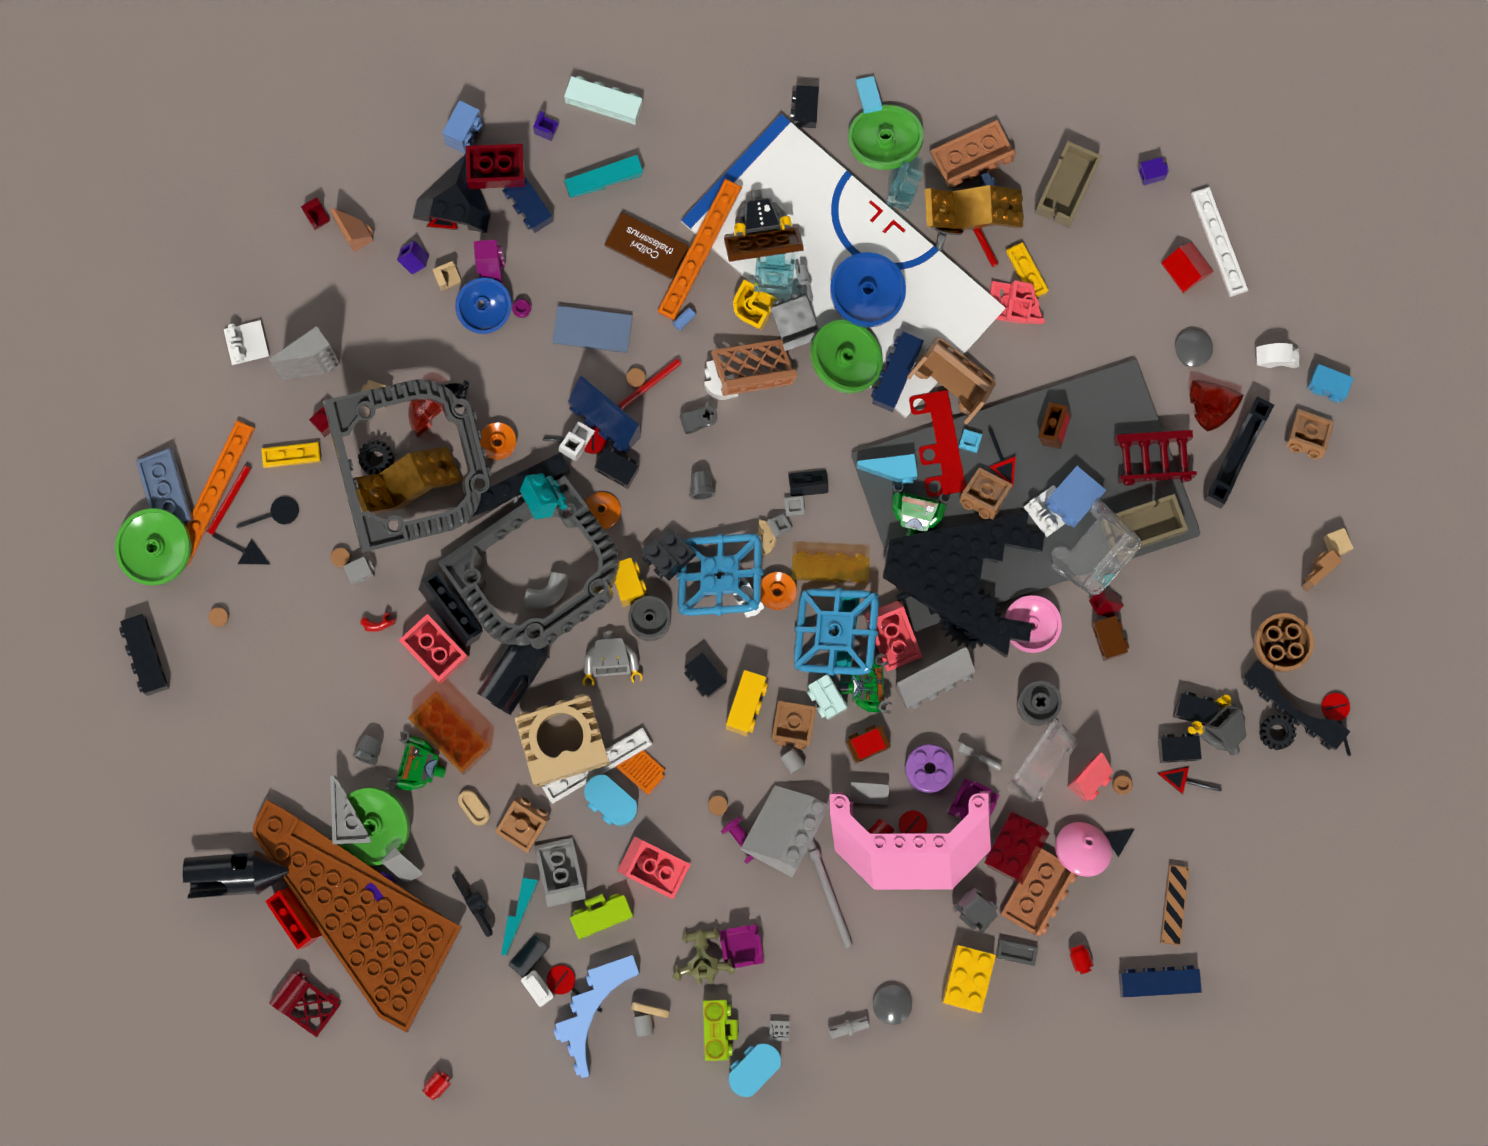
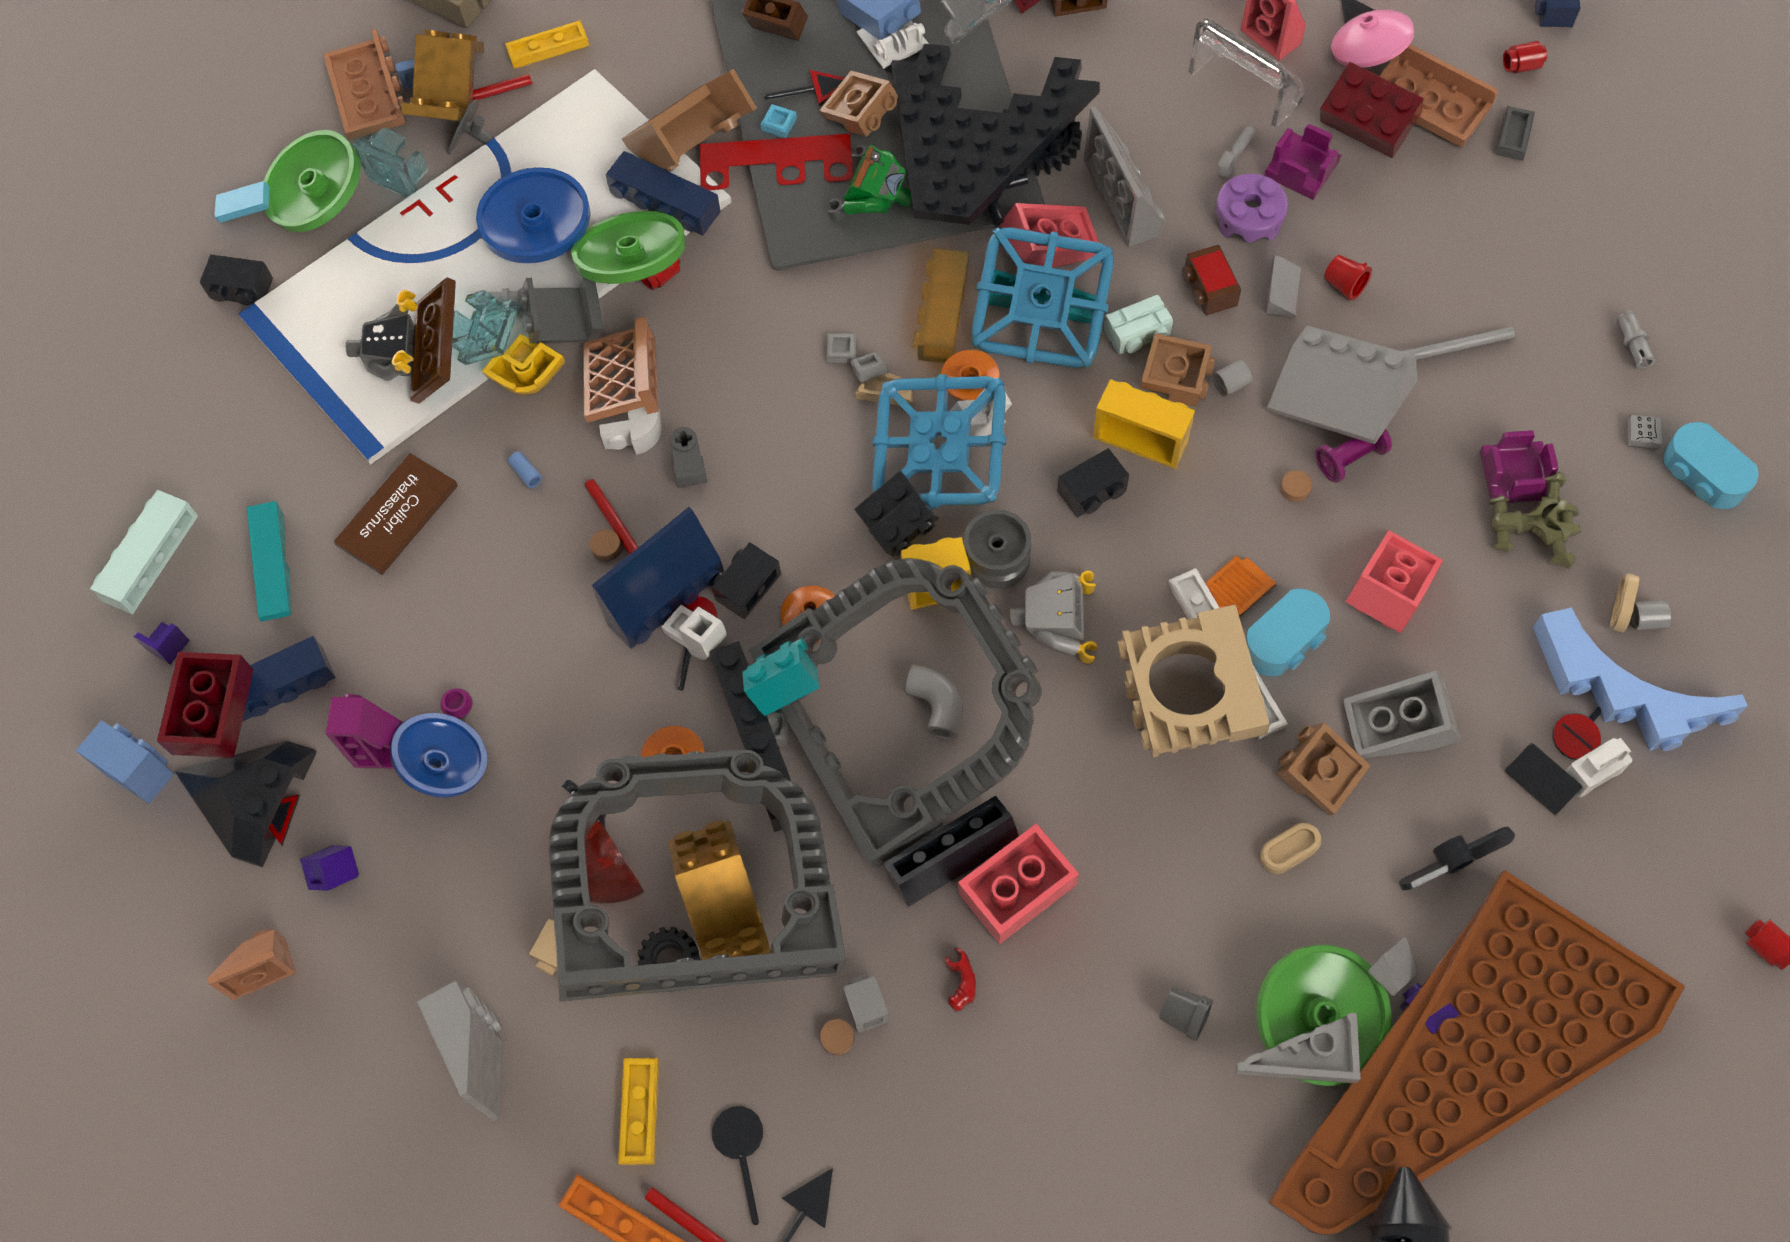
camera: 75 degrees left, 15 degrees down
(246, 342) = (416, 1177): white hinge -> none
(291, 993) = (1624, 1187): dark red piece -> none
(293, 918) = (1490, 1168): red brick -> none
(315, 213) = (211, 1031): dark red panel -> none
(320, 422) = (590, 1042): dark red brick -> none
(417, 765) = (1218, 929): green torso -> none
(447, 275) = (374, 817): tan panel -> none
(449, 733) = (1165, 869): clear orange brick -> none
(513, 675) = (1074, 756): black piece -> none
(513, 923) = (1488, 795): teal slope -> none
(592, 329) = (513, 602): sand blue tile -> none
(593, 921) = (1478, 662): lime piece -> none
(699, 249) = (421, 436): orange tile -> none
(701, 486) = (793, 463): dark grey piece -> none
(715, 1041) = (1651, 511): lime piece -> none
(808, 483) = (809, 327): black slope -> none
(868, 688) = (1134, 271): torso -> none
(892, 1005) = (1597, 285): dark grey dish -> none
(893, 468) = (806, 210): medium azure slope -> none
(912, 822) = (1334, 239): red piece -> none
(912, 858) = (1394, 228): bright pink windscreen -> none
(968, 979) = (1559, 185): yellow piece -> none
(976, 910) = (1461, 163): dark grey brick -> none
(1019, 302) = (589, 50): coral slope -> none
(1042, 692) = (1164, 71): dark grey wheel -> none
(1043, 616) = (1035, 56): bright pink dish -> none

